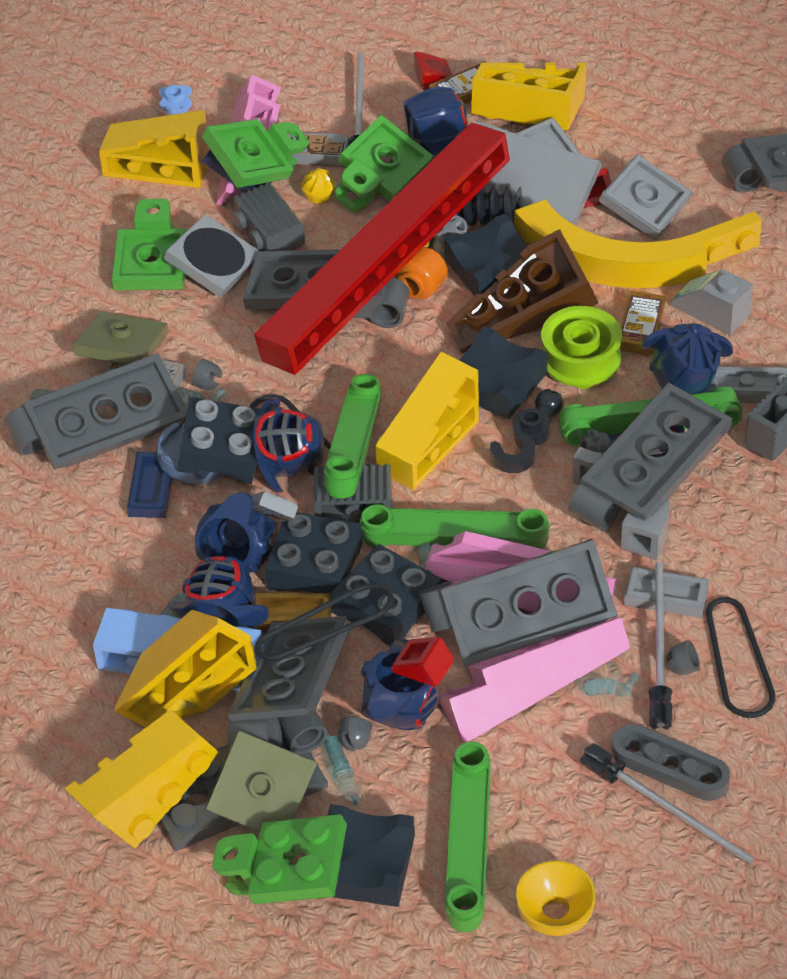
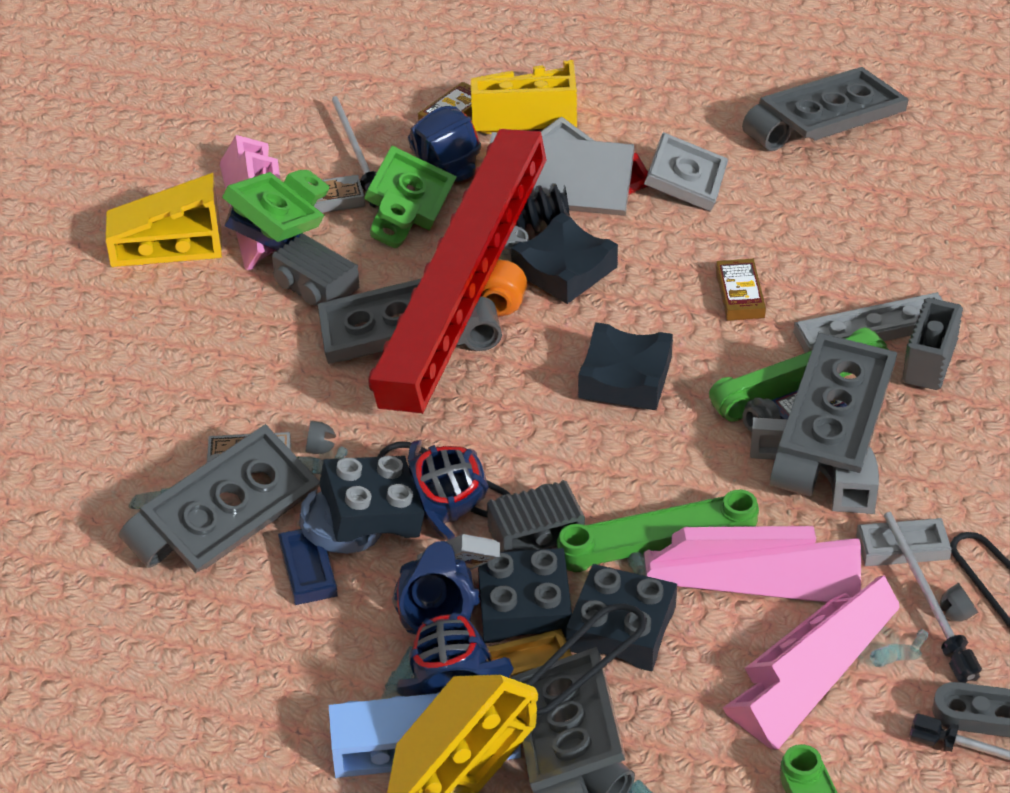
camera: 20 degrees left, 5 degrees down
(120, 338) = (208, 422): olive plate -> none
(151, 237) = (200, 313): bright green plate -> none
(175, 99) = (158, 176): light blue plate -> none
(212, 255) = (272, 317): tile -> none
(318, 186) = (349, 229): yellow plate -> none
(352, 436) = (514, 462): bright green piece -> none
(354, 733) = (657, 770): dark grey hinge -> none
(395, 698) = (694, 706): dark blue piece -> none
(424, 660) = (718, 669): red slope -> none
(430, 68) = (409, 99): red slope -> none
(431, 421) = (585, 426): yellow wedge -> none
(486, 609) = (744, 599): dark grey hinge -> none
(526, 293) = (626, 280): reddish brown wedge -> none
(529, 430) = (686, 416): black piece -> none
(582, 346) = (702, 321): lime wheel -> none
(641, 263) = (699, 235): yellow arch -> none
(686, 356) = (819, 304): dark blue piece -> none
(716, 300) = (804, 250): light grey slope -> none

